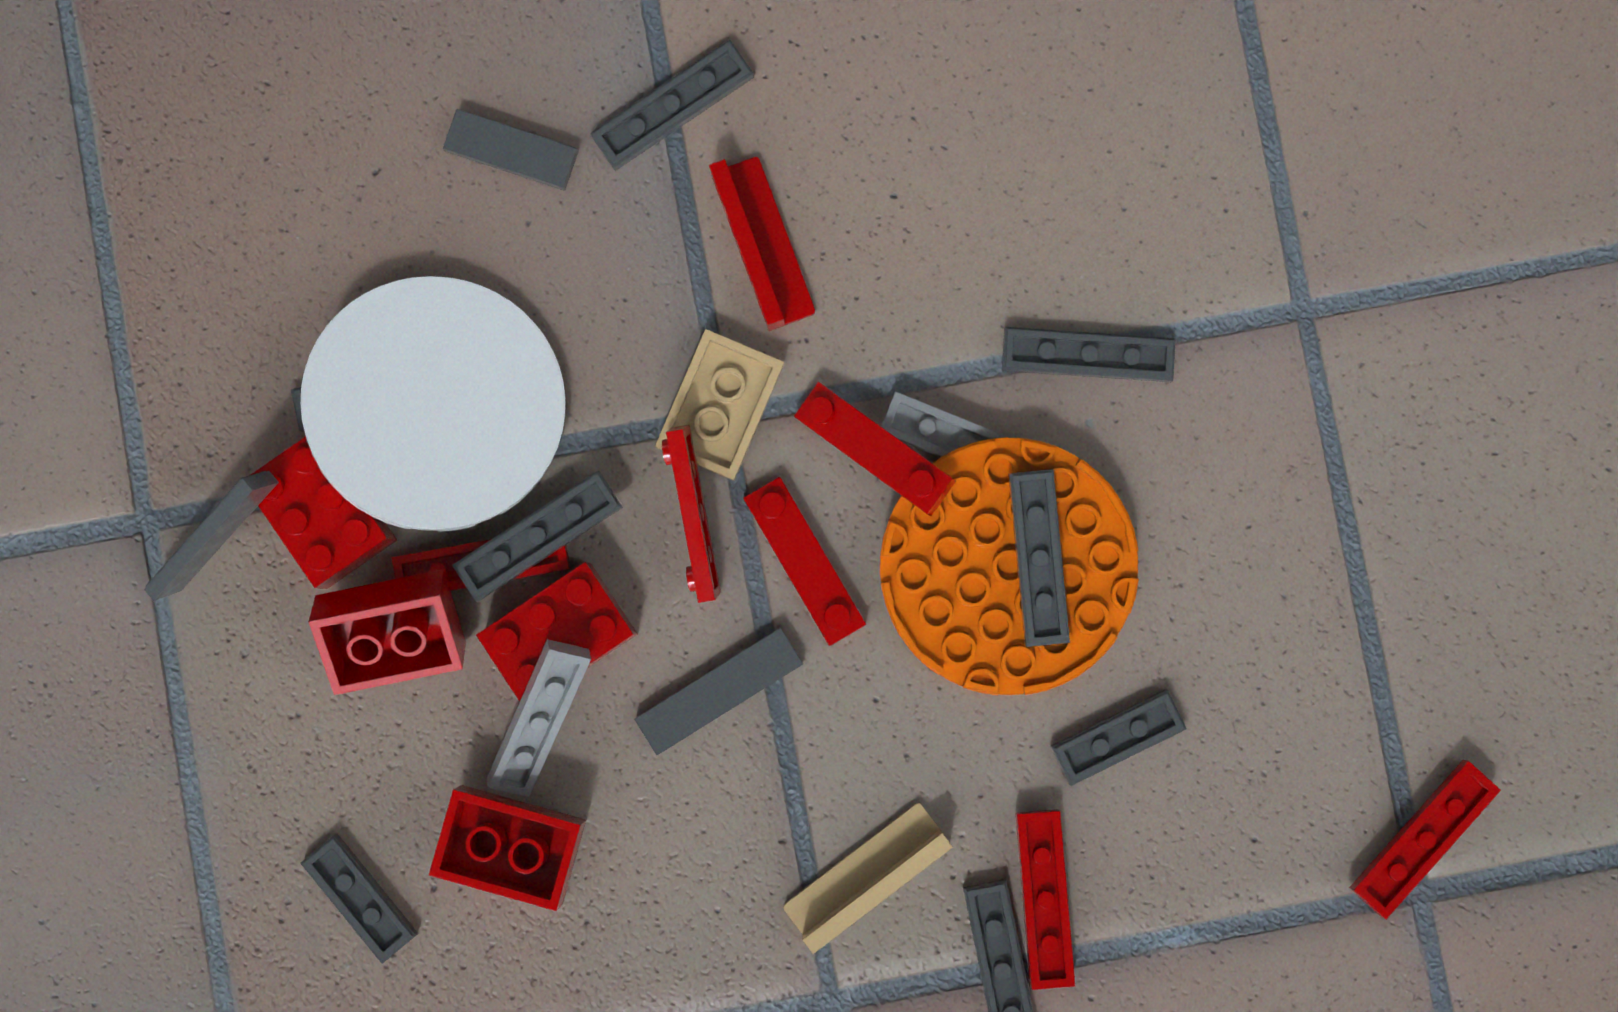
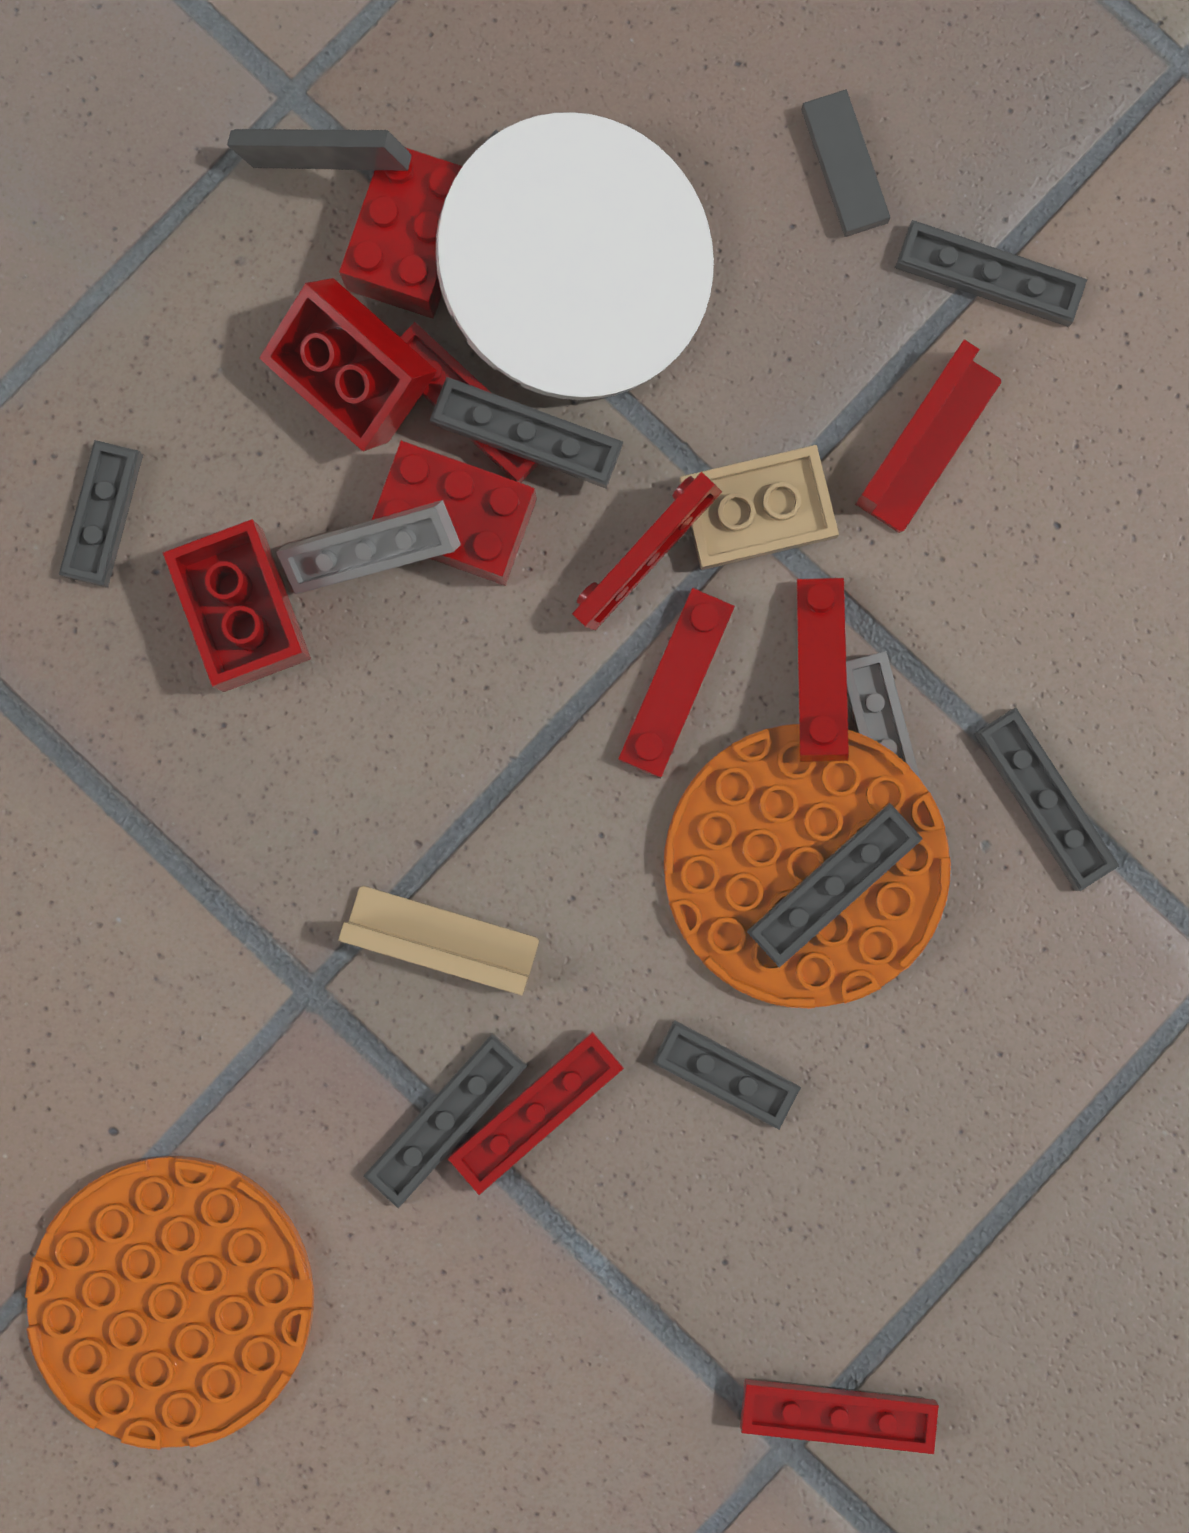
camera: 55 degrees right, 0 degrees up
(718, 691) = (507, 691): dark grey tile -> none

